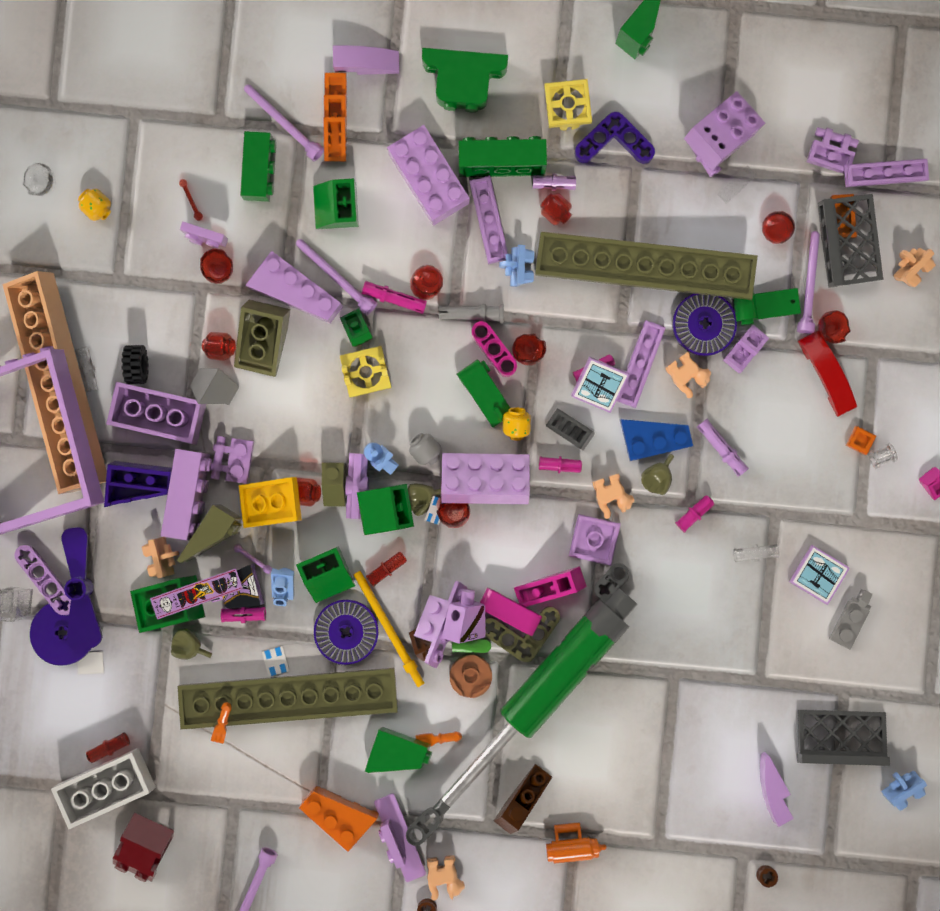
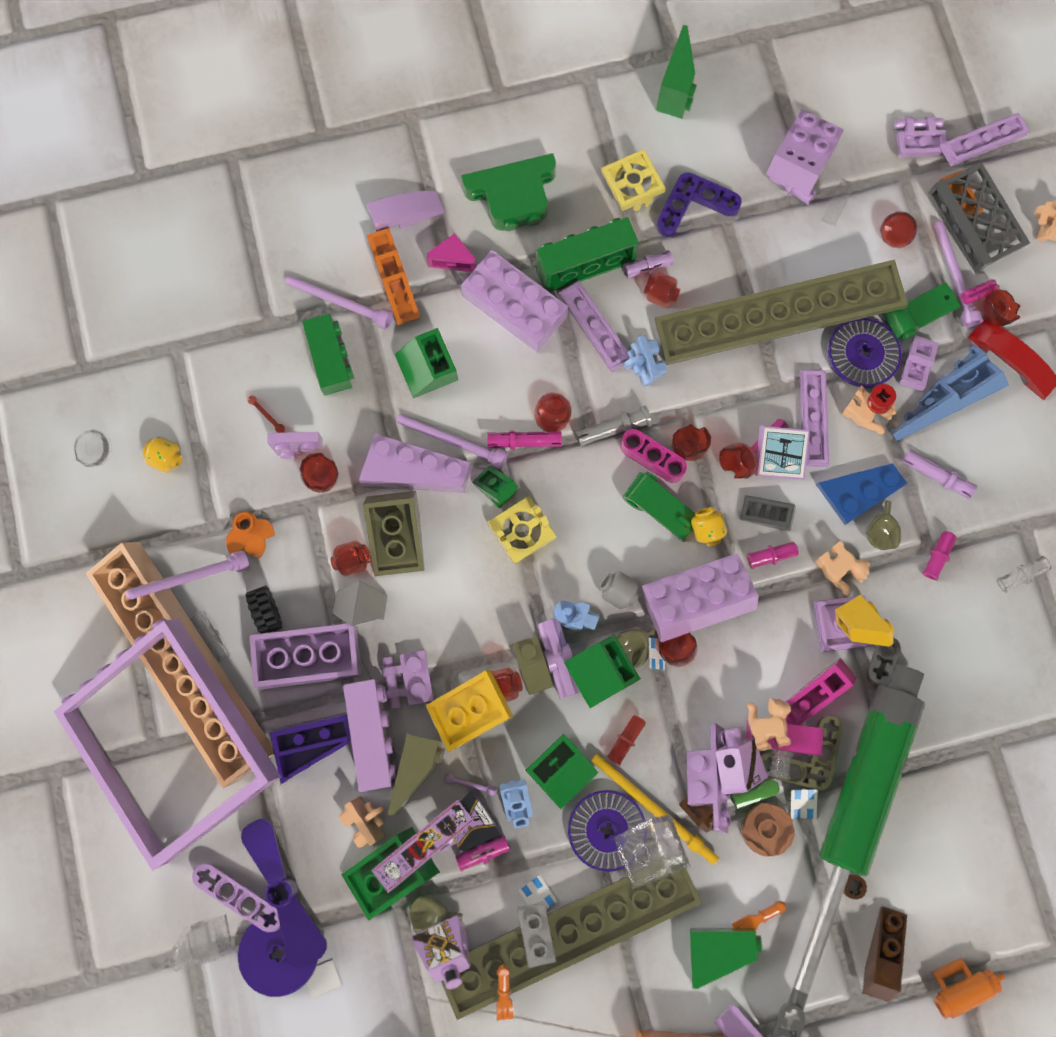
camera: 20 degrees left, 10 degrees down
(125, 316) = (236, 562): none -> lavender piece
(144, 300) = (251, 538): none -> orange plate
(187, 676) = (444, 951): none -> torso
(261, 689) = (536, 934): none -> light grey brick
(372, 660) = (651, 851): none -> clear slope
(390, 115) = (452, 256): none -> dark pink slope
(497, 600) = (769, 727): none -> light nougat animal
(497, 631) = (780, 764): none -> clear bush
(506, 667) = (804, 804): none -> white sticker
(525, 745) = (862, 888): none -> reddish brown bush
(563, 376) = (739, 459): none -> clear red hair
(605, 546) = (863, 623): none -> yellow slope
(695, 374) = (877, 403): none -> red wheel
(777, 381) = (966, 384): none -> medium blue wedge
(821, 306) = (979, 291): none -> dark pink axle

